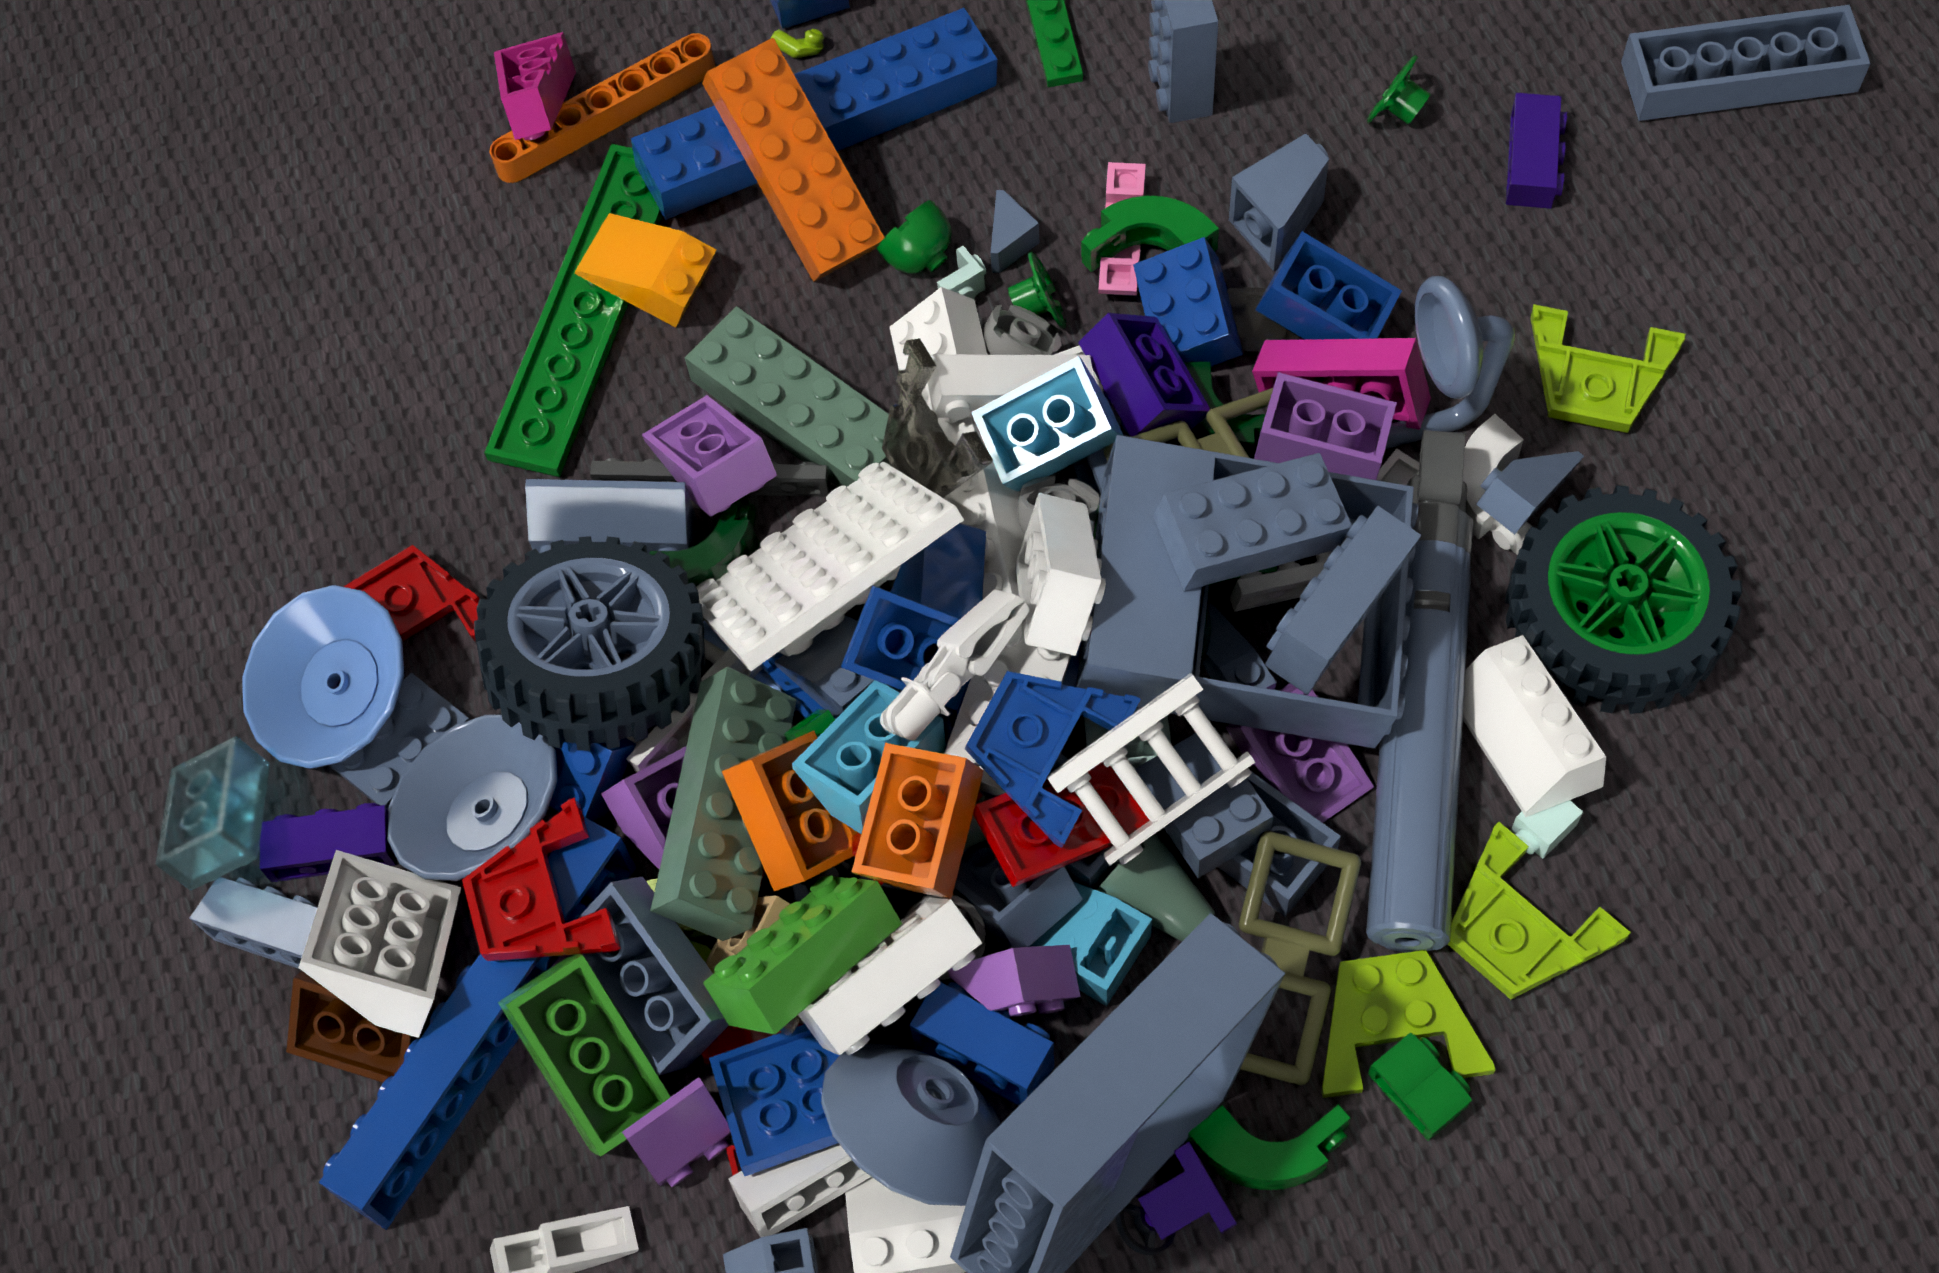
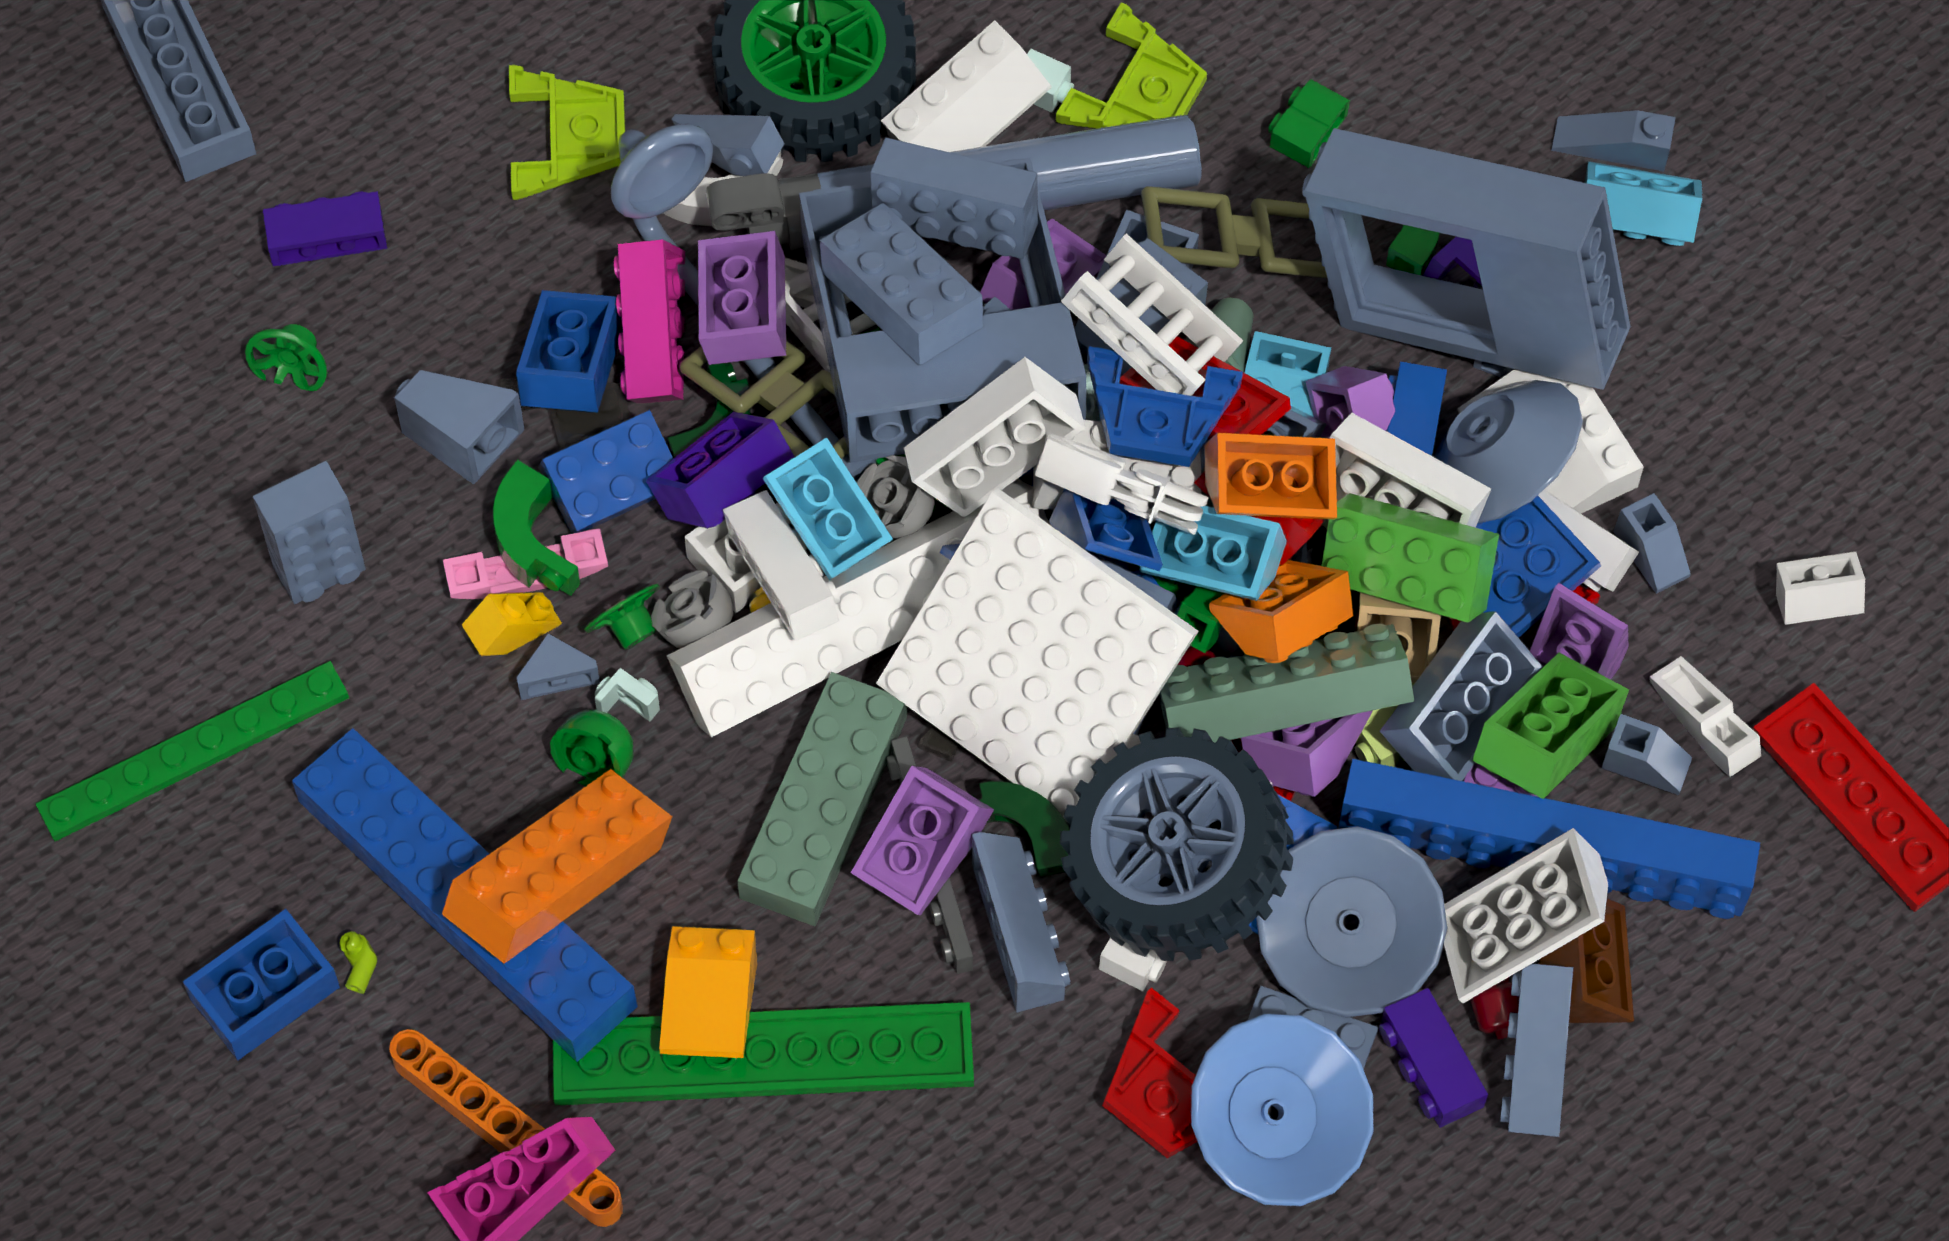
camera: 115 degrees left, 0 degrees up
(213, 814) = (1456, 1148): clear light blue brick -> none
(518, 903) = (1449, 811): red wing -> none
(537, 1162) = (1646, 755): none -> sand blue slope
(916, 440) = (875, 624): clear smoke wing -> none
(1068, 208) = (509, 621): none -> yellow slope
(1384, 1002) = (1240, 158): lime wing -> none

